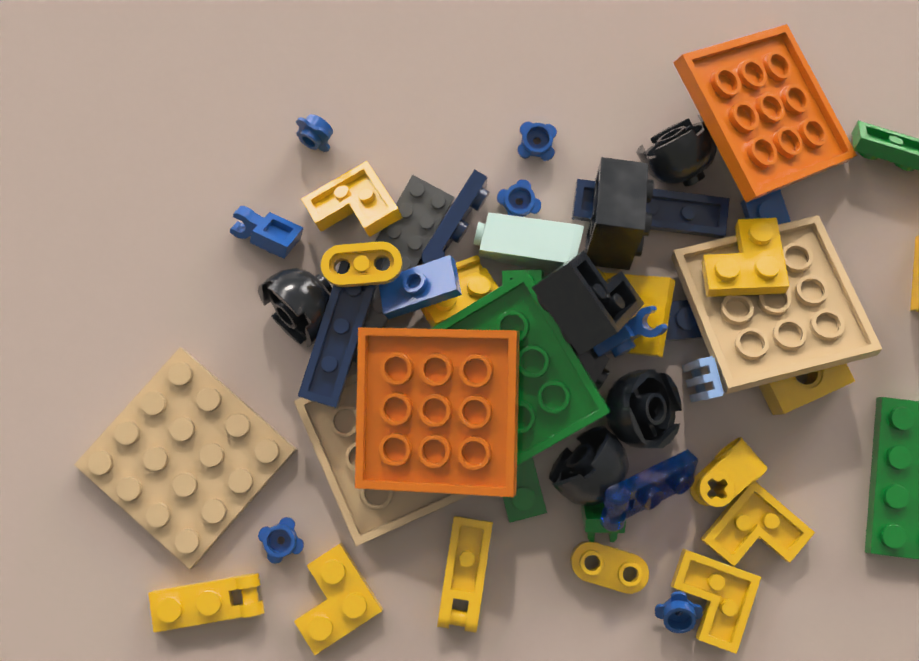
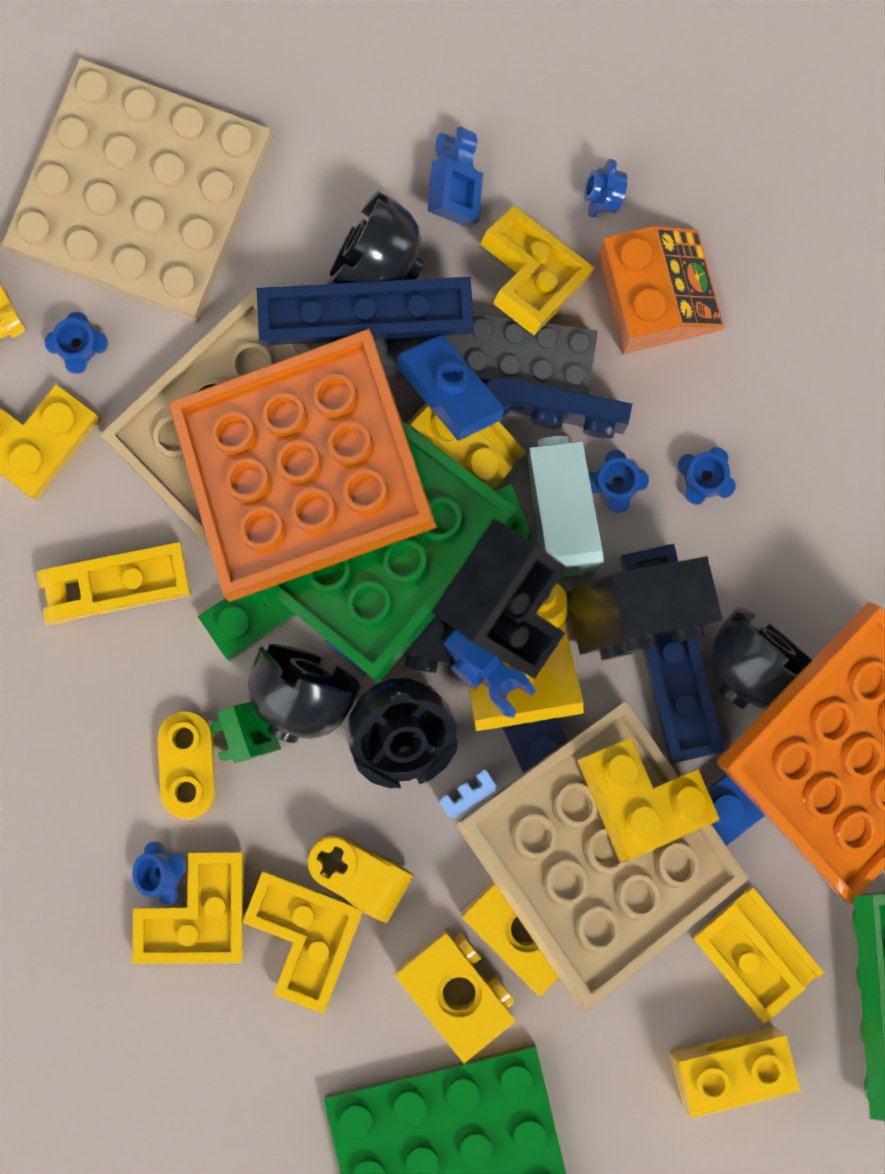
camera: 70 degrees right, 0 degrees up
(362, 264) = (450, 304): yellow plate -> none
(396, 124) = (658, 287): none -> orange slope
(647, 489) = (299, 772): clear blue plate -> none
(853, 437) = (464, 1026): none -> yellow brick
(869, 228) = (757, 954): none -> yellow plate

